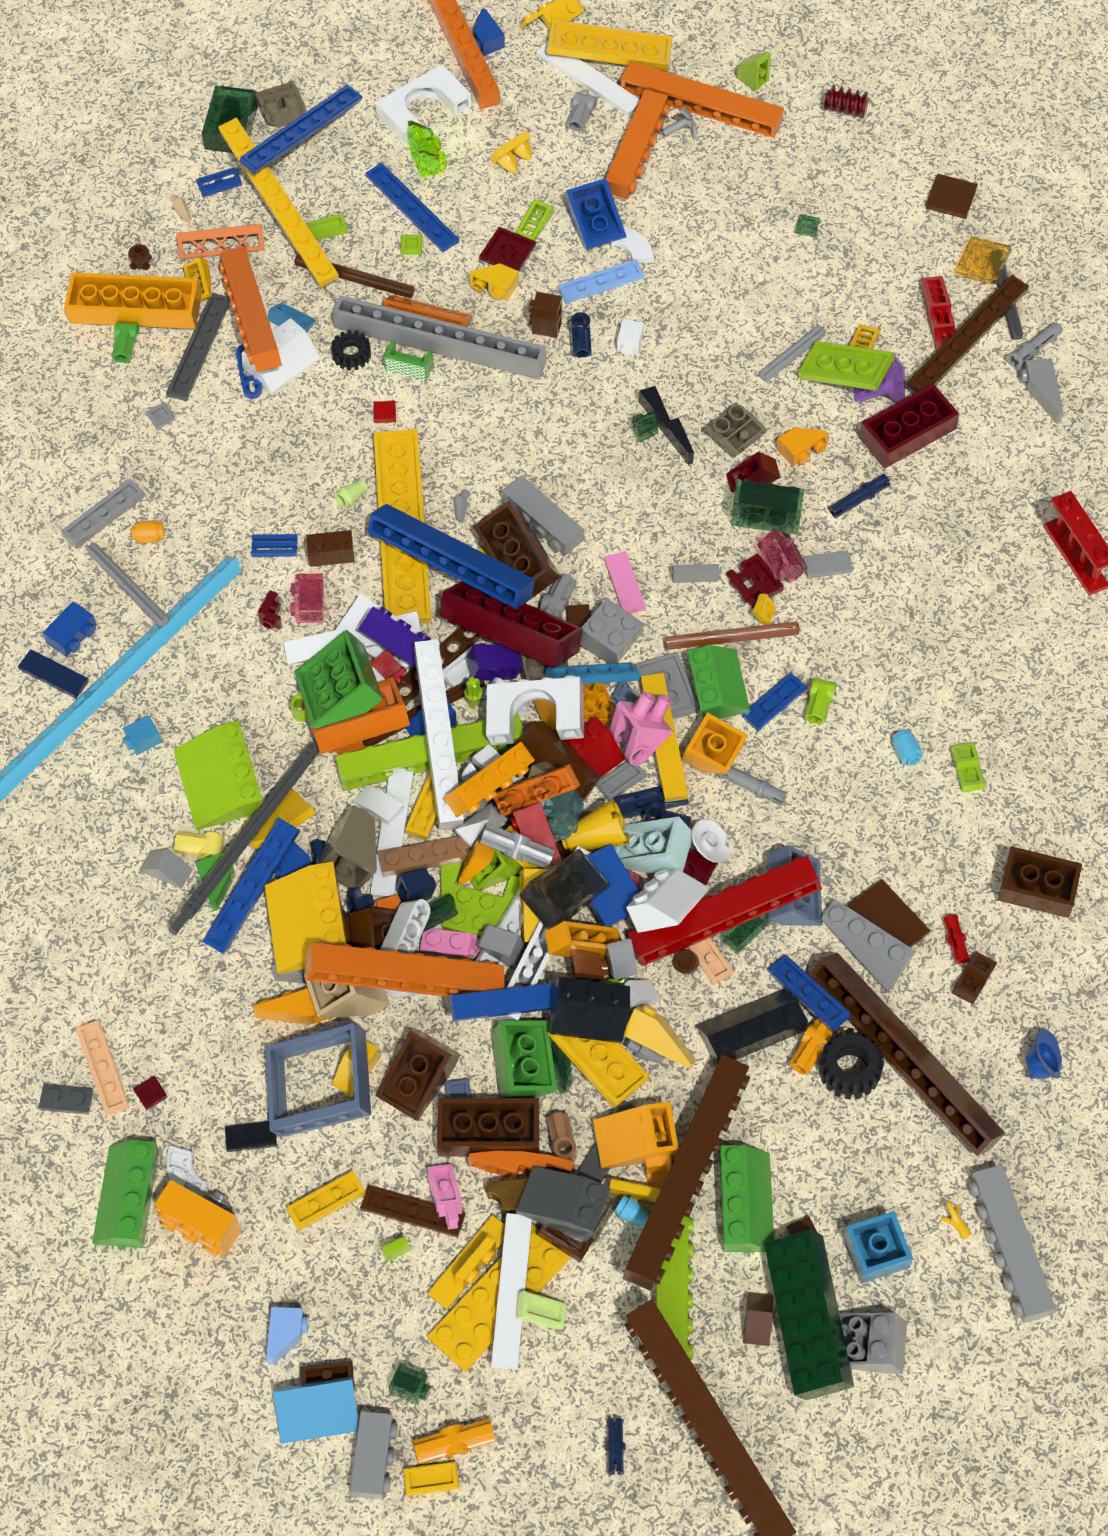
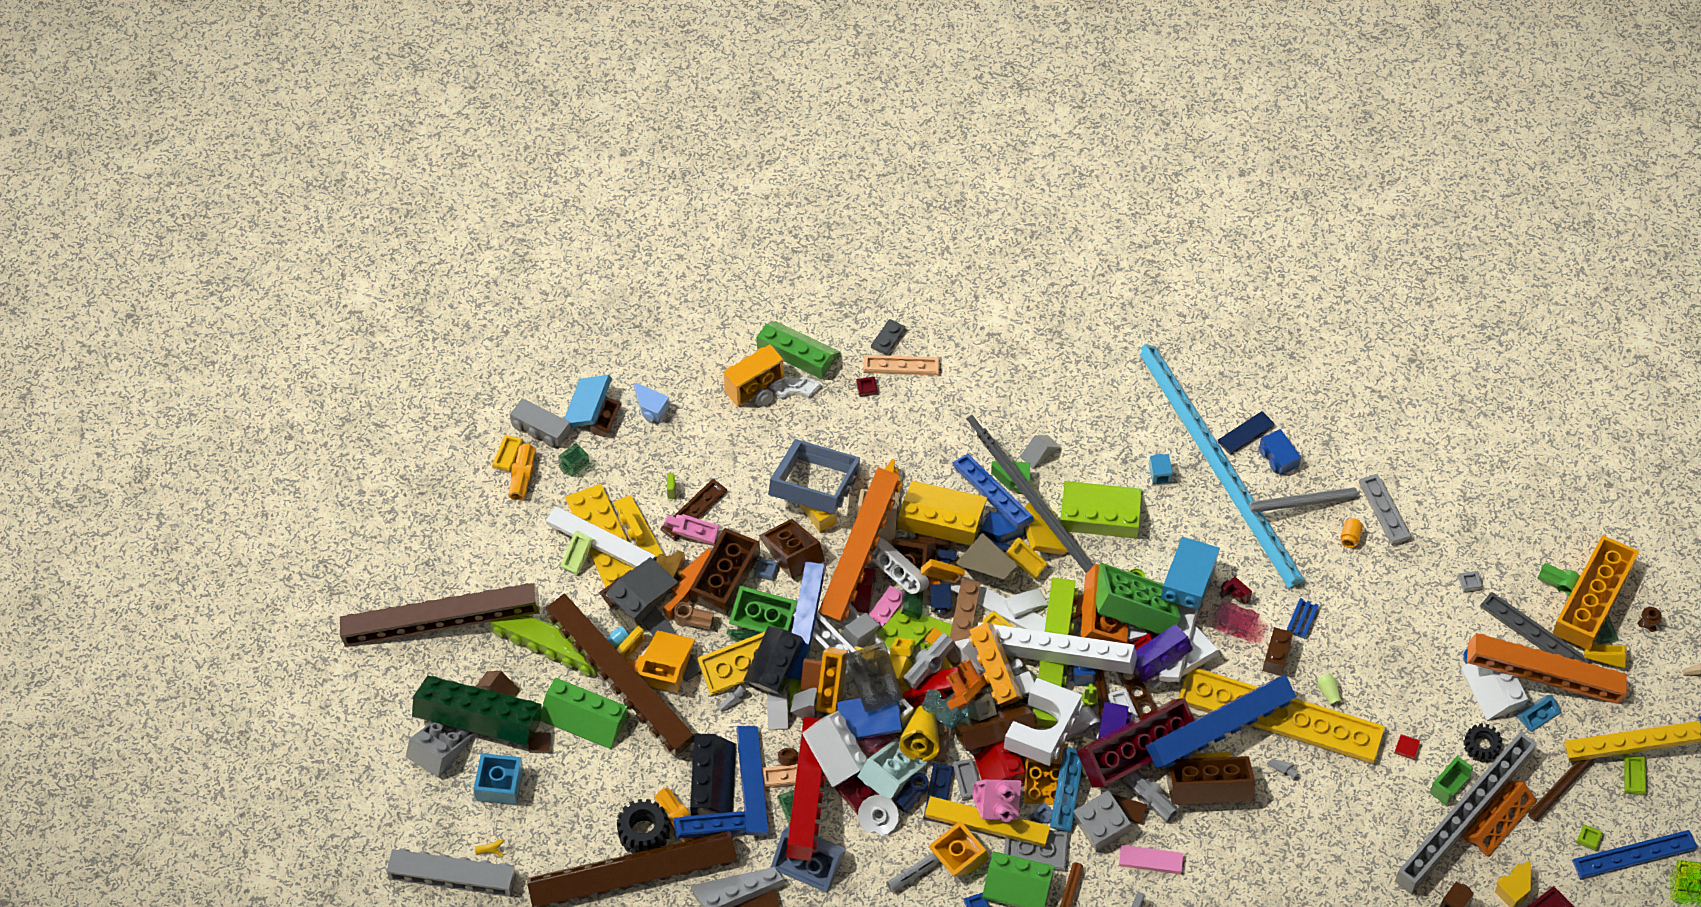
camera: 115 degrees right, 5 degrees down
(199, 845) = (1046, 477): light yellow piece -> none
(217, 233) = (1654, 684): orange fence -> none
(249, 1137) = (803, 430): black tile -> none
(282, 644) = (1190, 573): none -> dark azure slope
(325, 1200) = (729, 459): yellow plate -> none
(327, 816) = (1026, 558): none -> yellow tile
(387, 890) = (942, 571): none -> light orange tile
(505, 887) = (902, 647): none -> yellow tile
(544, 516) = (1243, 820): light grey brick -> none
(615, 1446) = (463, 563): dark blue pin -> none
(655, 1033) = (734, 709): yellow slope -> none
(734, 983) = (752, 781): none -> blue tile

